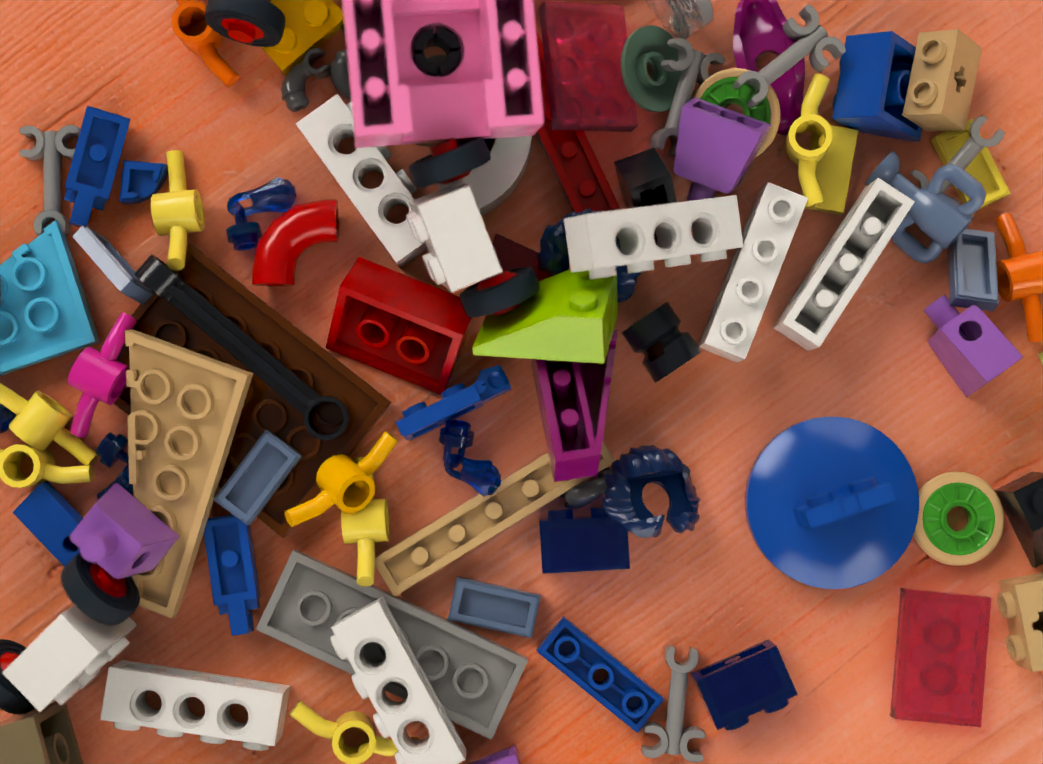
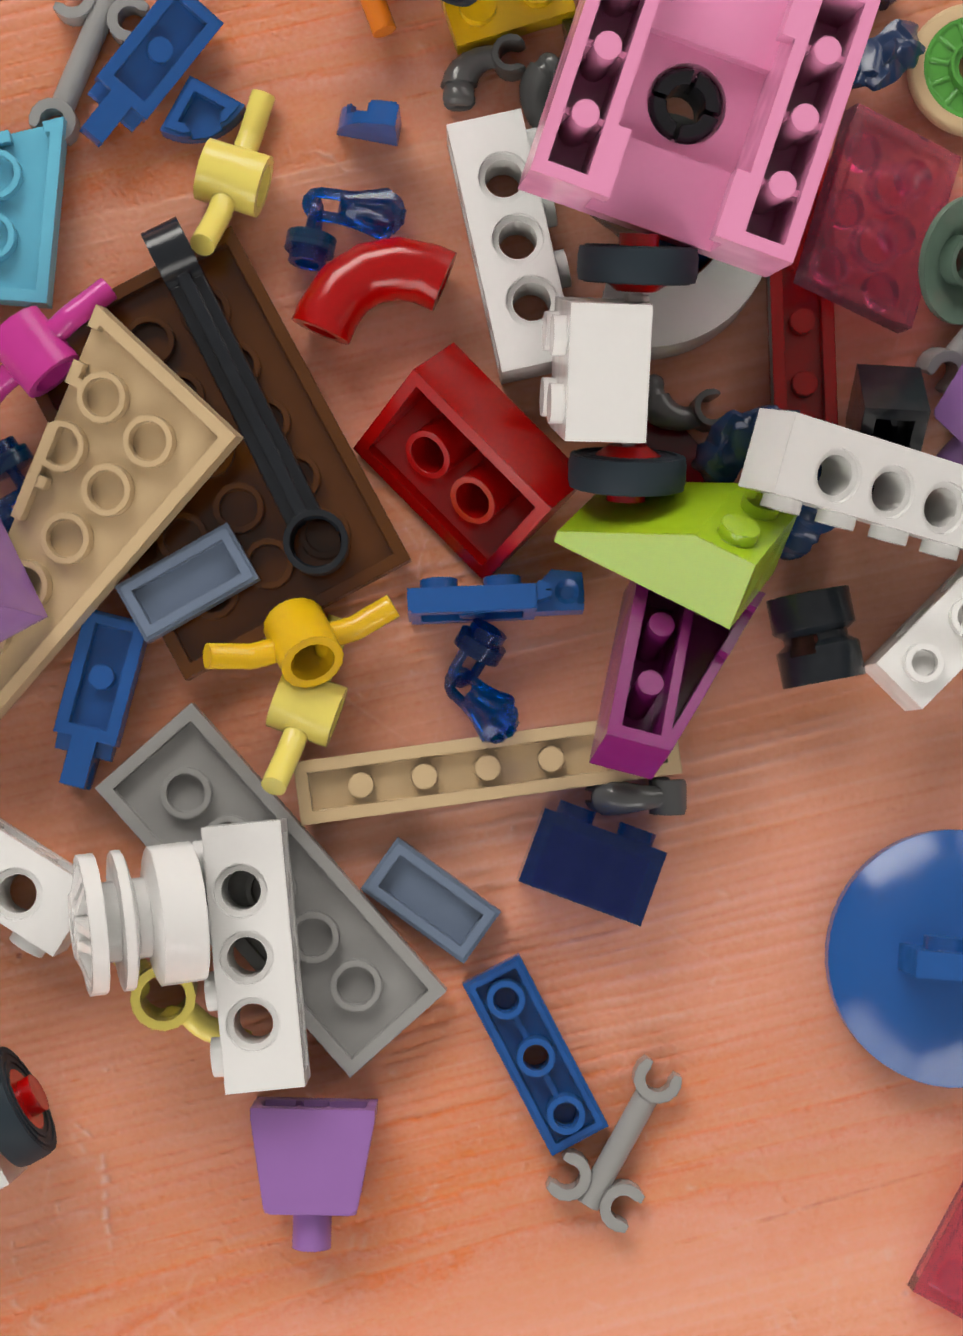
camera: 20 degrees right, 0 degrees up
(112, 264) = (116, 210): tile -> none
(254, 139) = (378, 124): none -> blue tile
(317, 700) = (140, 918): none -> white wheel
(506, 242) = (669, 415): none -> dark grey arm
(625, 487) = (704, 797): dark blue piece -> none
(744, 685) = (726, 1155): clear blue brick -> none

